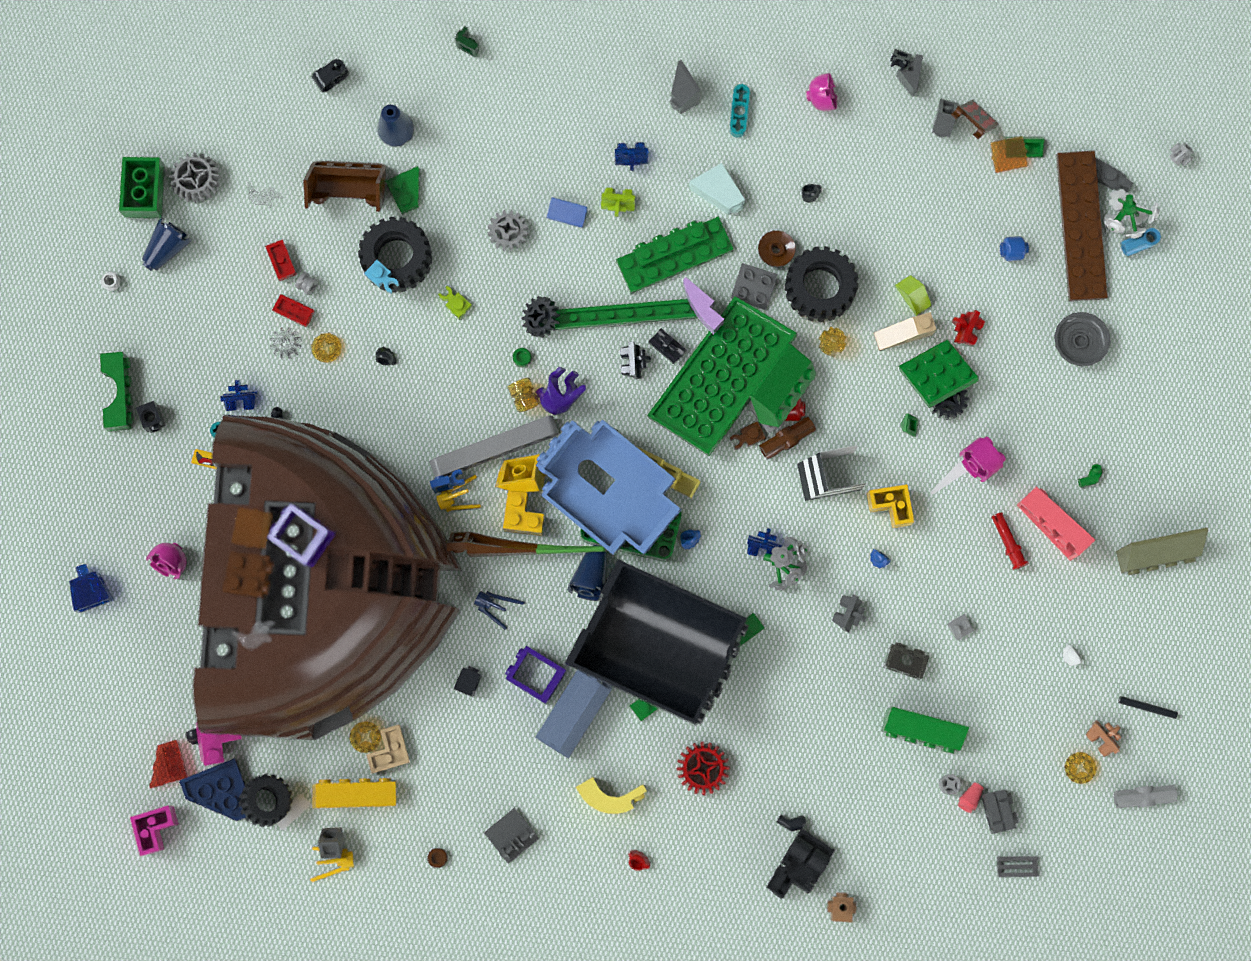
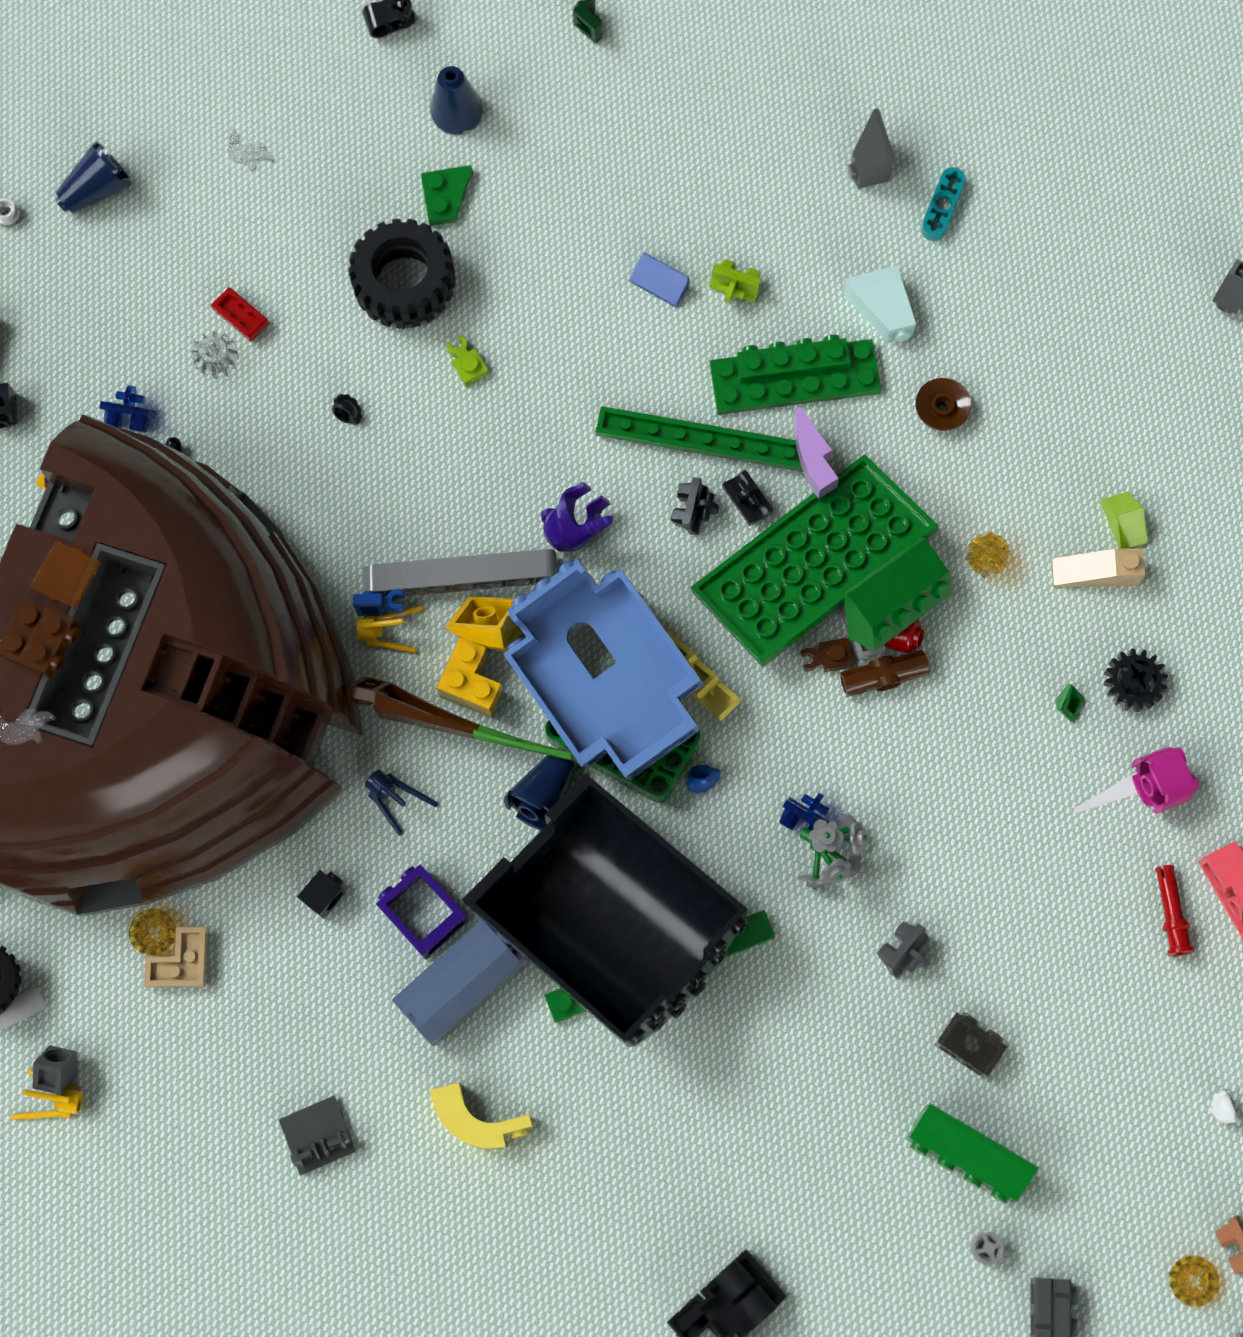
camera: 20 degrees right, 5 degrees down
(141, 187) = (86, 97): green brick -> none
(180, 180) = (151, 95): light grey gear -> none
(280, 260) = (244, 242): red plate -> none
(306, 283) = (269, 282): light grey wheel -> none
(317, 545) = (148, 621): window -> none
(334, 350) = (279, 382): clear yellow gear -> none
(345, 180) = (361, 158): reddish brown windscreen -> none
(353, 794) = (109, 1008): yellow wedge -> none
(380, 275) = (370, 292): medium azure plate -> none
(437, 857) = (201, 1137): reddish brown tile -> none
(500, 228) = (568, 280): light grey gear -> none
(522, 357) = (537, 461): green tile -> none
(524, 396) = (523, 509): clear yellow wheel -> none
(540, 316) = (579, 410): black gear -> none
(631, 156) = (772, 225): clear blue hips -> none
(638, 860) = (490, 1226): red piece -> none
(697, 751) = (623, 1091): red gear -> none
(754, 286) = (897, 447): dark grey hinge -> none
(792, 824) = (734, 1239): black arm -> none
(810, 192) = (1014, 340): black piece -> none
(813, 475) = (906, 739): sticker -> none
(822, 93) = (1068, 207): dark pink cylinder -> none
(832, 263) = (1008, 438): black tyre -> none
(879, 559) = (972, 884): blue piece -> none
(894, 499) = (1018, 804): yellow brick -> none
(900, 59) = (1193, 189): black plate -> none
(910, 77) = (1200, 219): dark grey slope -> none
(938, 373) = (1131, 639): green plate -> none
(960, 627) = (1066, 1018): light grey tile -> none
(965, 326) = (1188, 583): red hips -> none
(970, 799) = (1012, 1279): coral cone -> none

